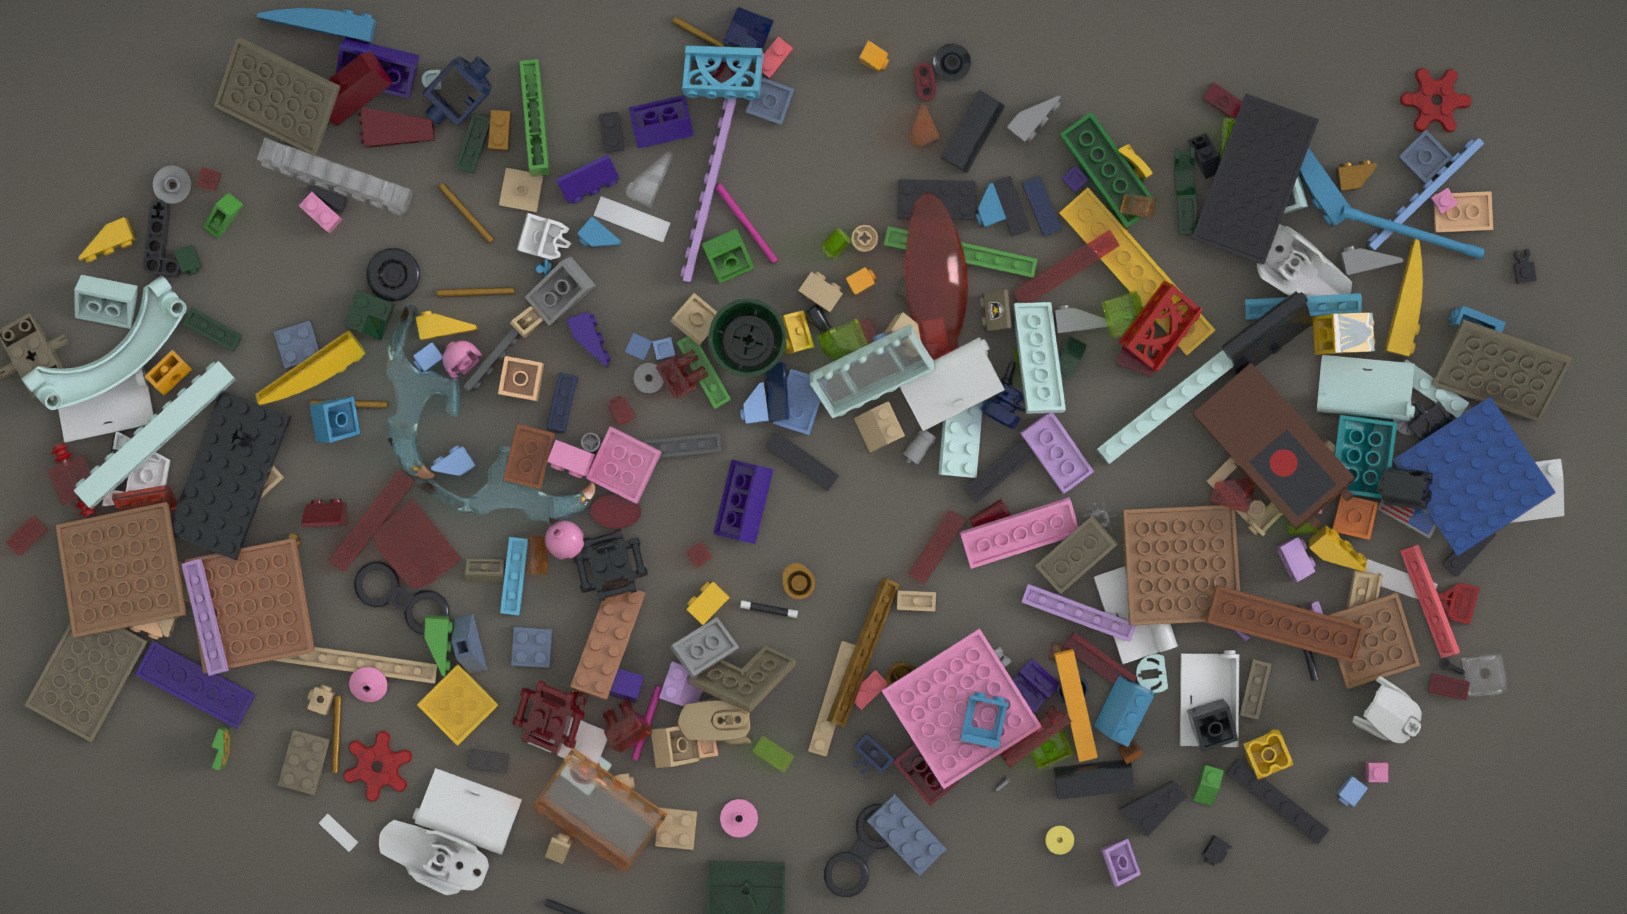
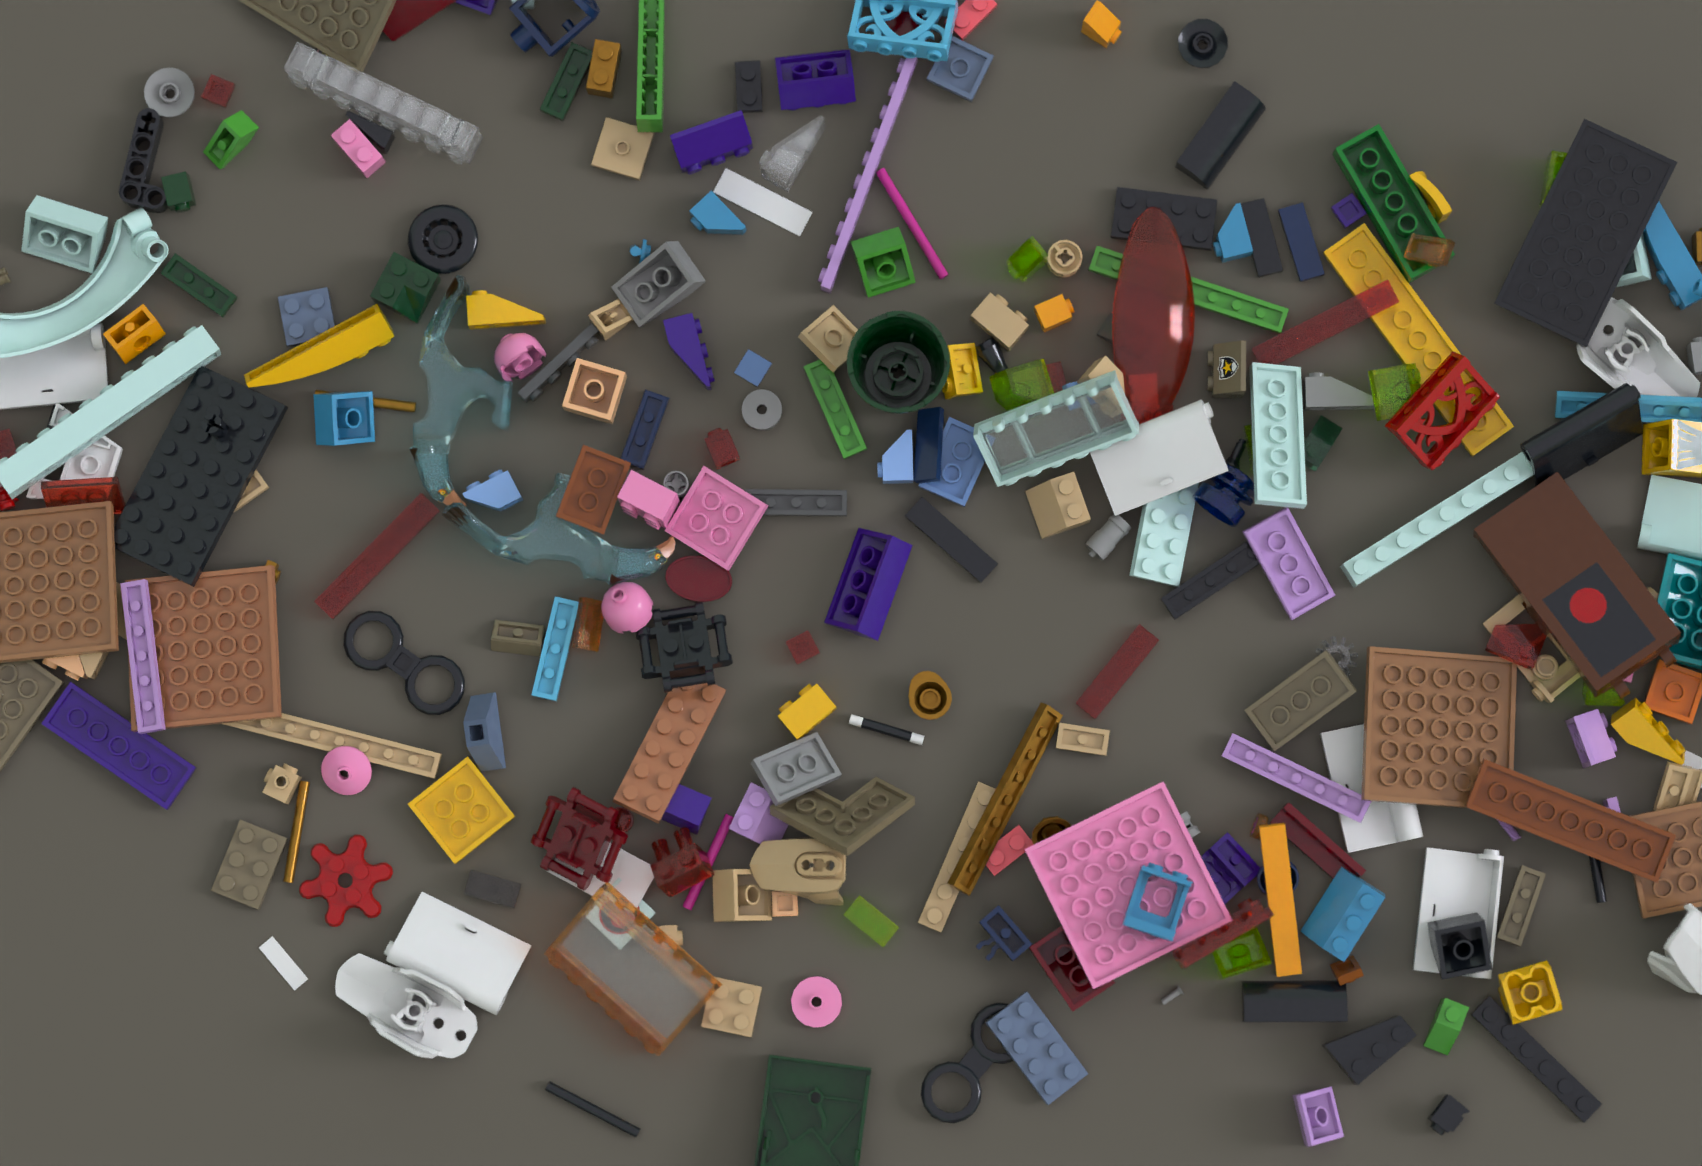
camera: 15 degrees right, 5 degrees down
(110, 237) = (82, 151): yellow slope -> none
(222, 743) = (144, 822): bright green slope -> none
(325, 514) = (316, 541): dark red slope -> none
(390, 128) = (465, 51): dark red slope -> none
(415, 546) = (430, 596): clear red plate -> none
(428, 357) = (475, 351): light blue brick -> none
(436, 636) = (444, 717): bright green slope -> none
(466, 213) = (547, 170): pearl gold bar -> none
(475, 291) = (548, 273): pearl gold bar -> none
(531, 647) = (567, 745): sand blue plate -> none
(542, 237) = (643, 211): white plate -> none
(559, 848) = (573, 1014): tan slope -> none
(664, 348) = (786, 373): light blue tile -> none
(676, 377) = (797, 410): clear red brick -> none
(923, 129) = (1157, 126): clear orange slope -> none
(925, 82) = (1165, 66): dark red plate -> none
(991, 513) = (1191, 639): dark red plate -> none
(1019, 532) = (1228, 664): bright pink plate -> none
(1026, 121) = (1295, 128): light grey slope -> none
(1059, 840) = (1240, 1078): light yellow piece -> none
(1130, 361) = (1399, 456): dark red plate -> none
(1146, 665) = (1377, 857): light aqua piece -> none
(1185, 190) = (1492, 241): dark green piece -> none
(1205, 155) = (1522, 198): black slope -> none
(1223, 100) = (1551, 130): dark red plate -> none
(1351, 791) = (1636, 1055): light blue brick -> none
(1376, 771) = (1672, 1033): bright pink brick -> none

